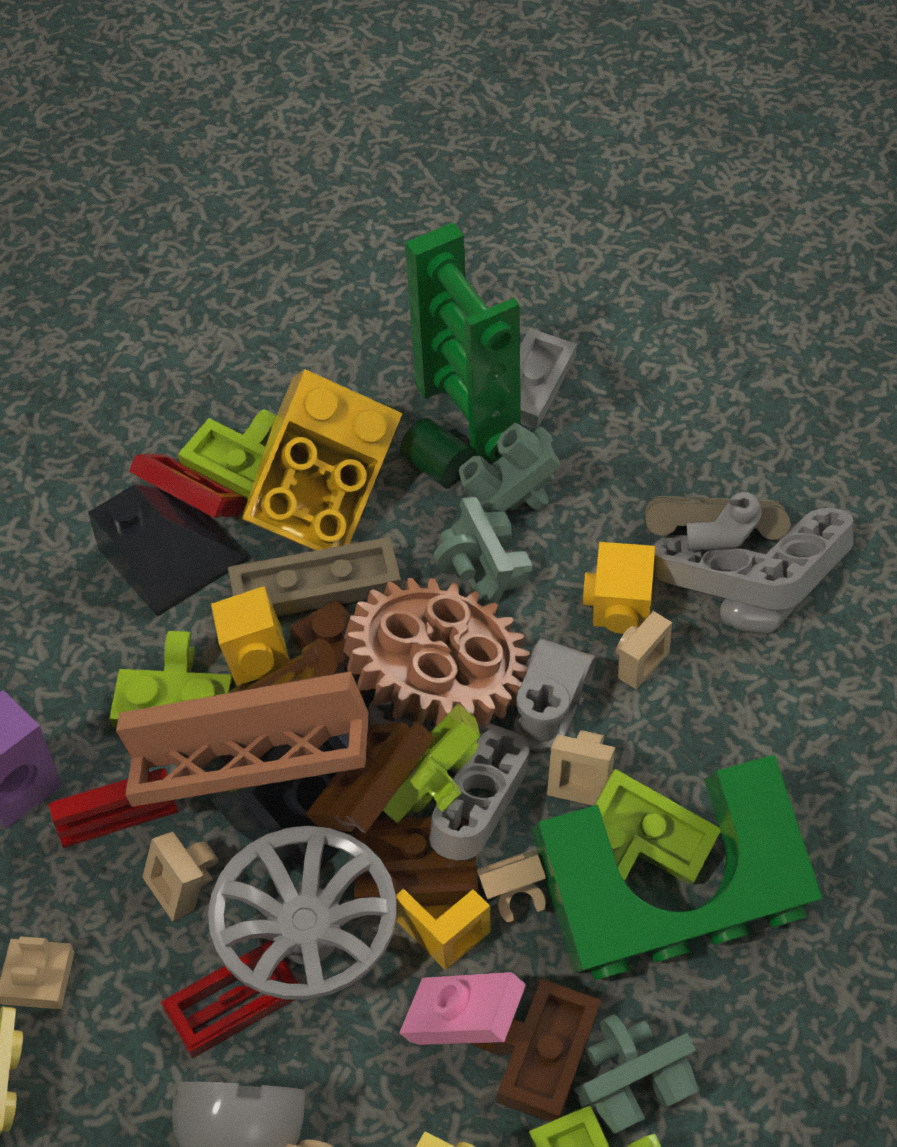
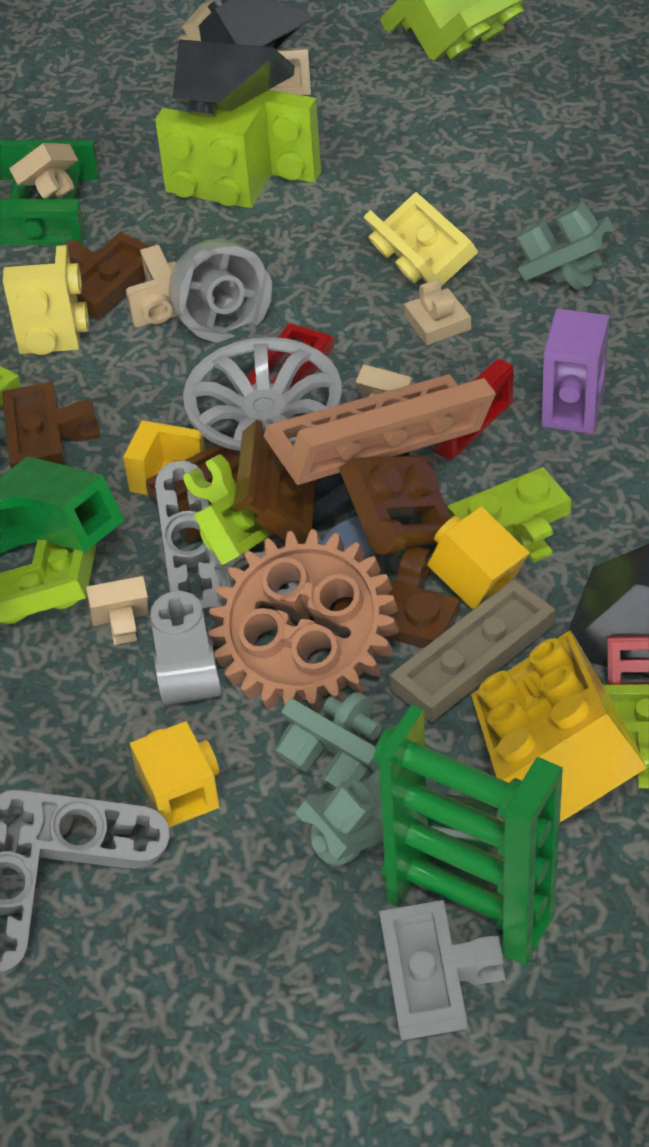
camera: 150 degrees right, 5 degrees down
(463, 1009) = (101, 401): bright pink plate -> none
(513, 876) = (137, 504): tan tile -> none
(643, 649) = (121, 725): tan plate -> none
(667, 512) = (119, 891): dark tan plate -> none
(730, 527) = (83, 851): light grey arm -> none

